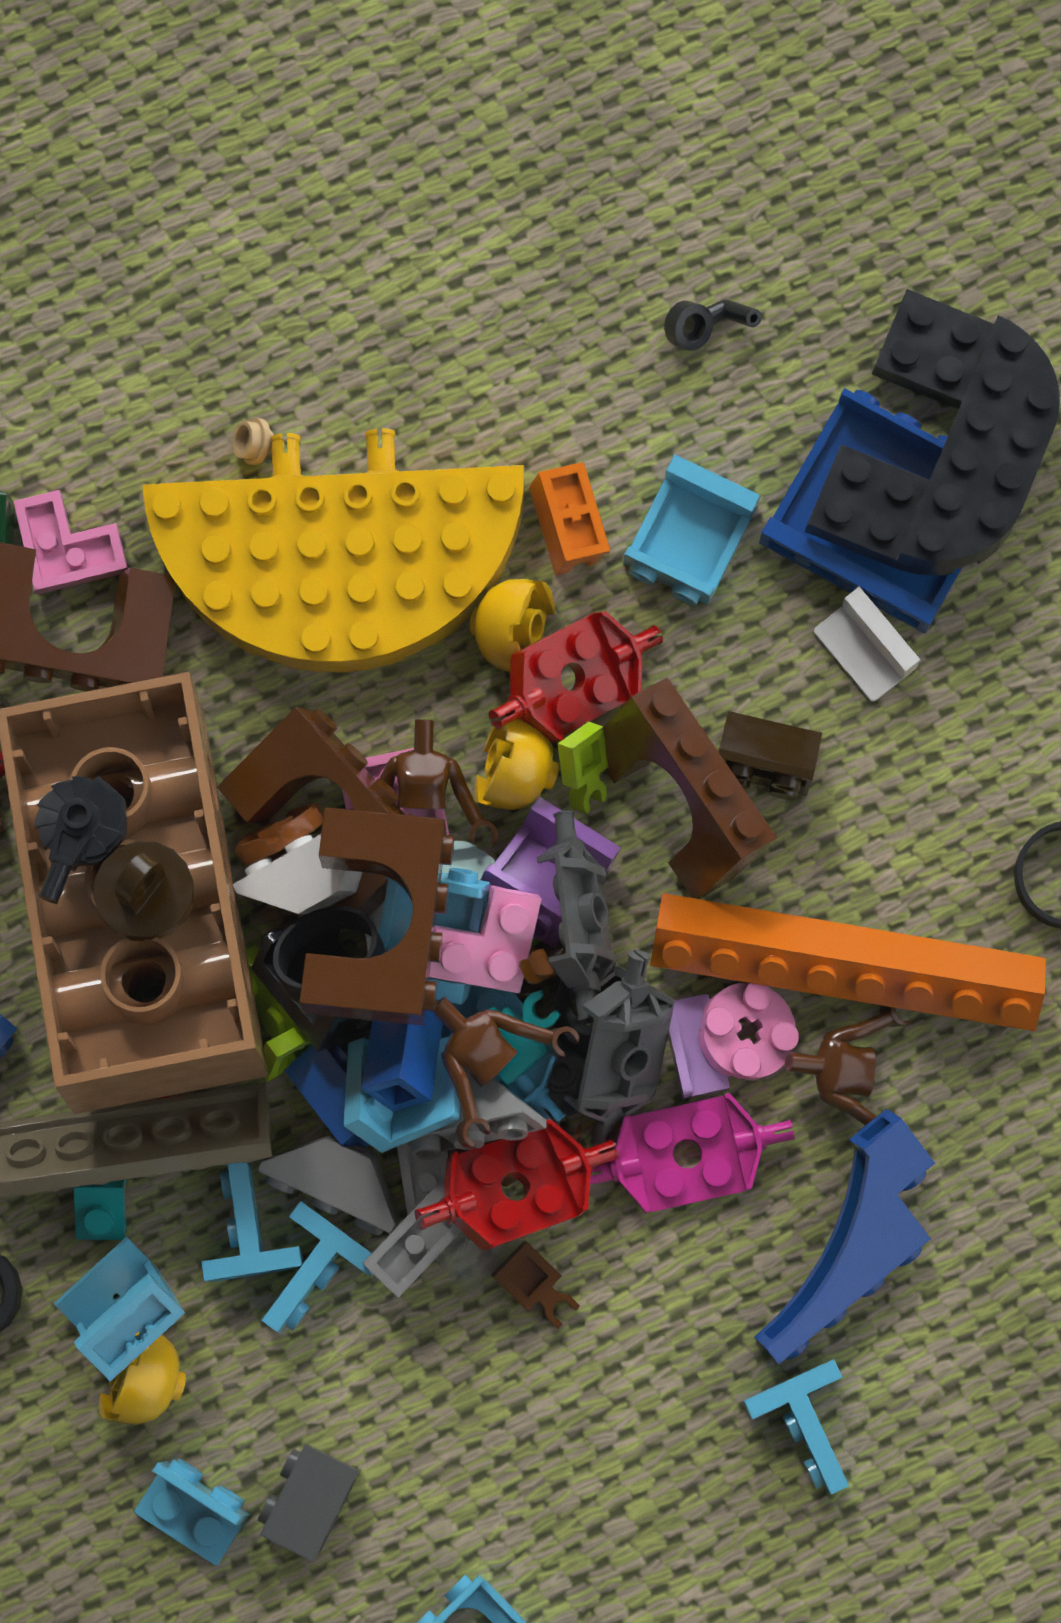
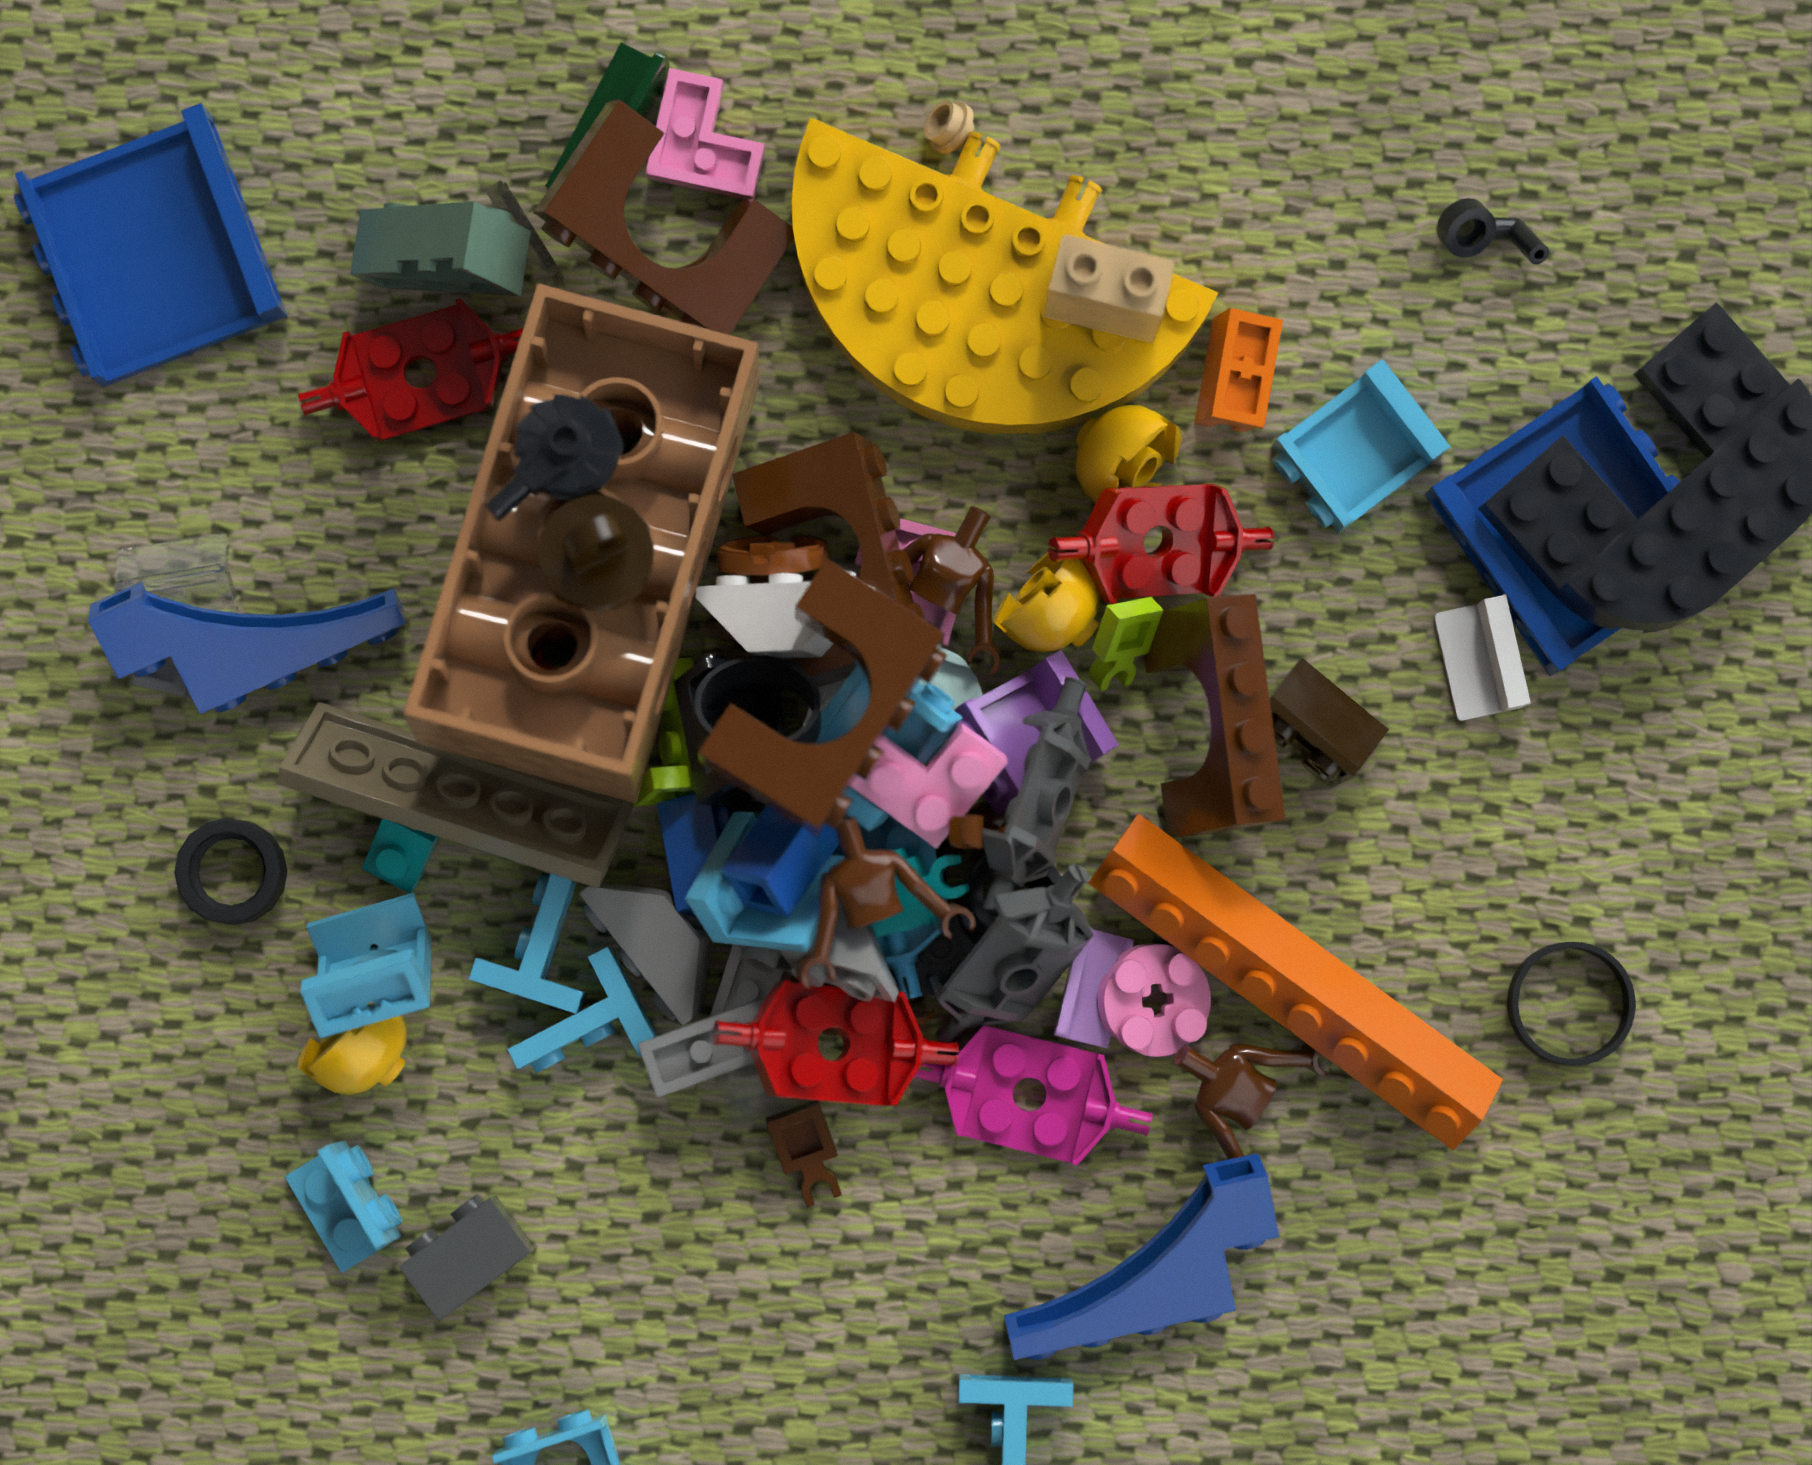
camera: 25 degrees right, 5 degrees up
(439, 500) = (1108, 288): none -> tan panel

